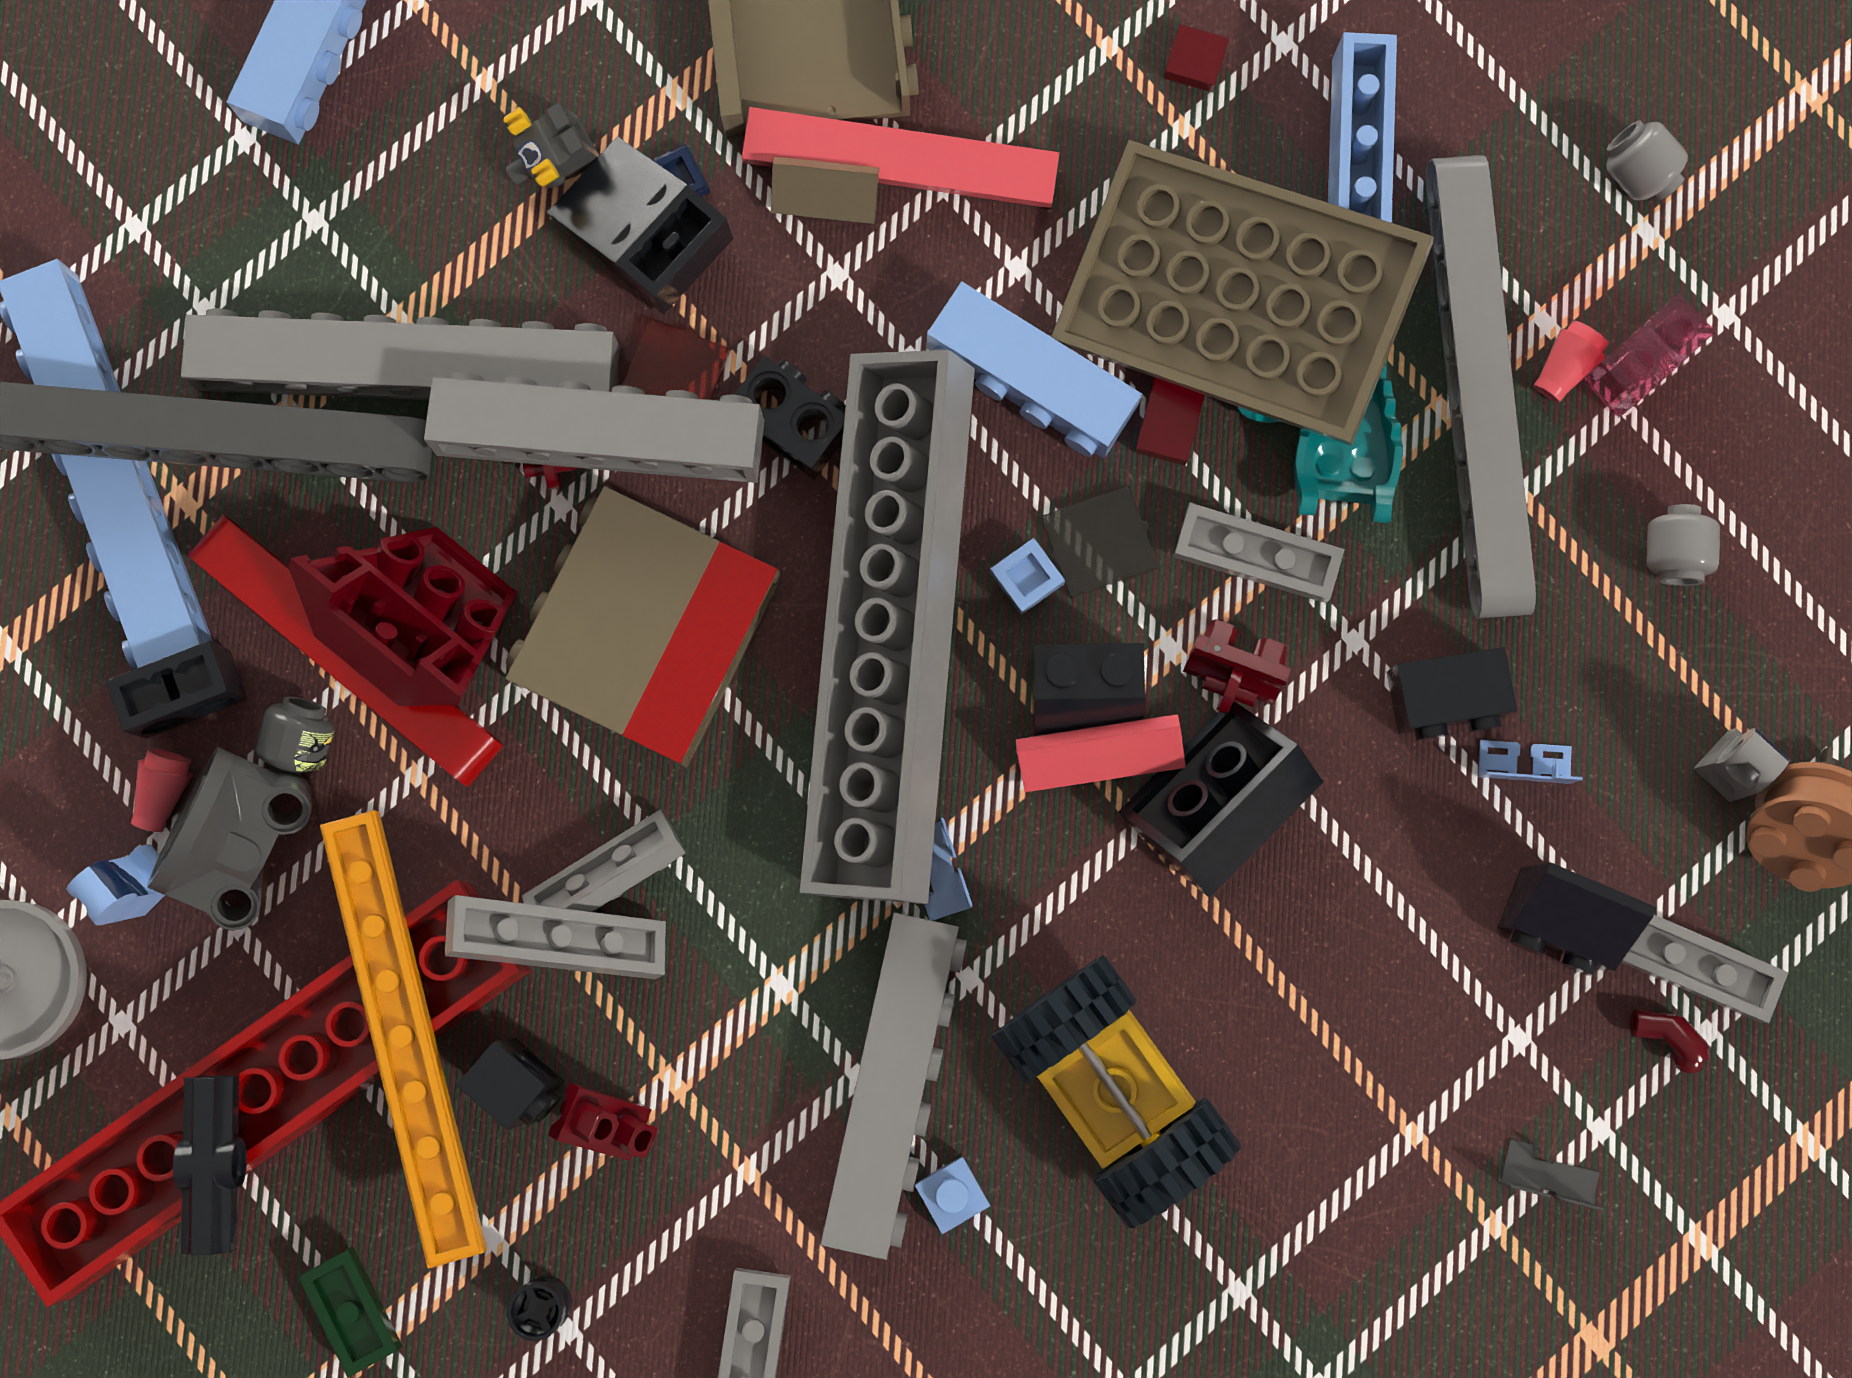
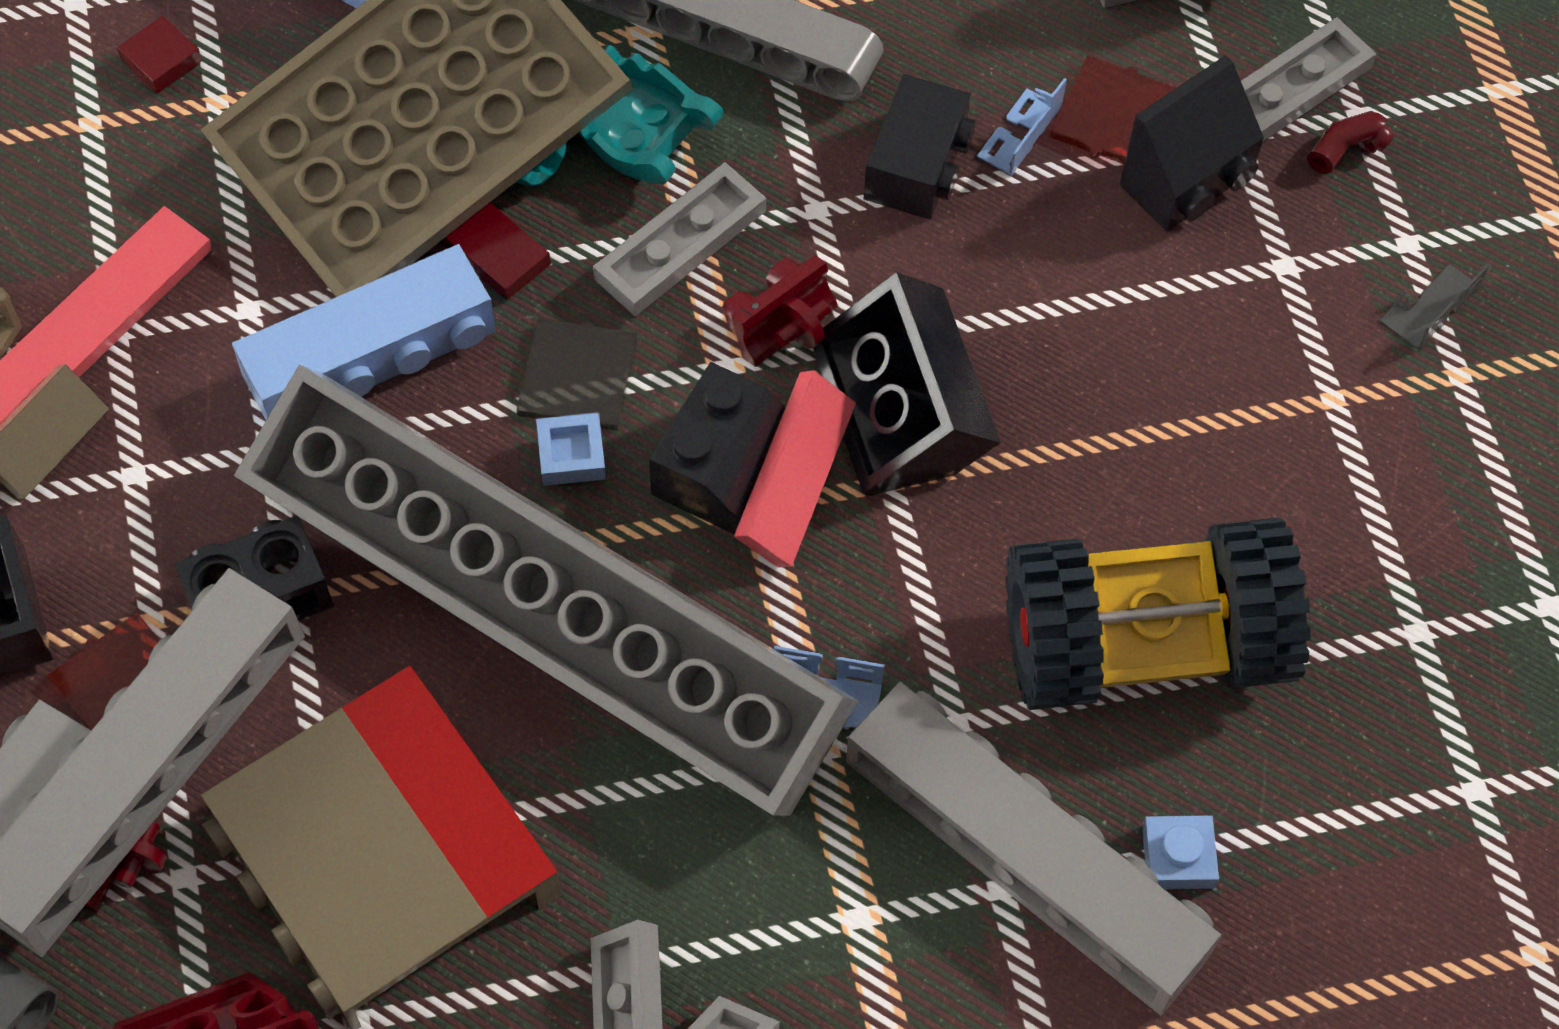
camera: 65 degrees left, 20 degrees down
(1589, 827) = (1103, 108): none -> clear red piece

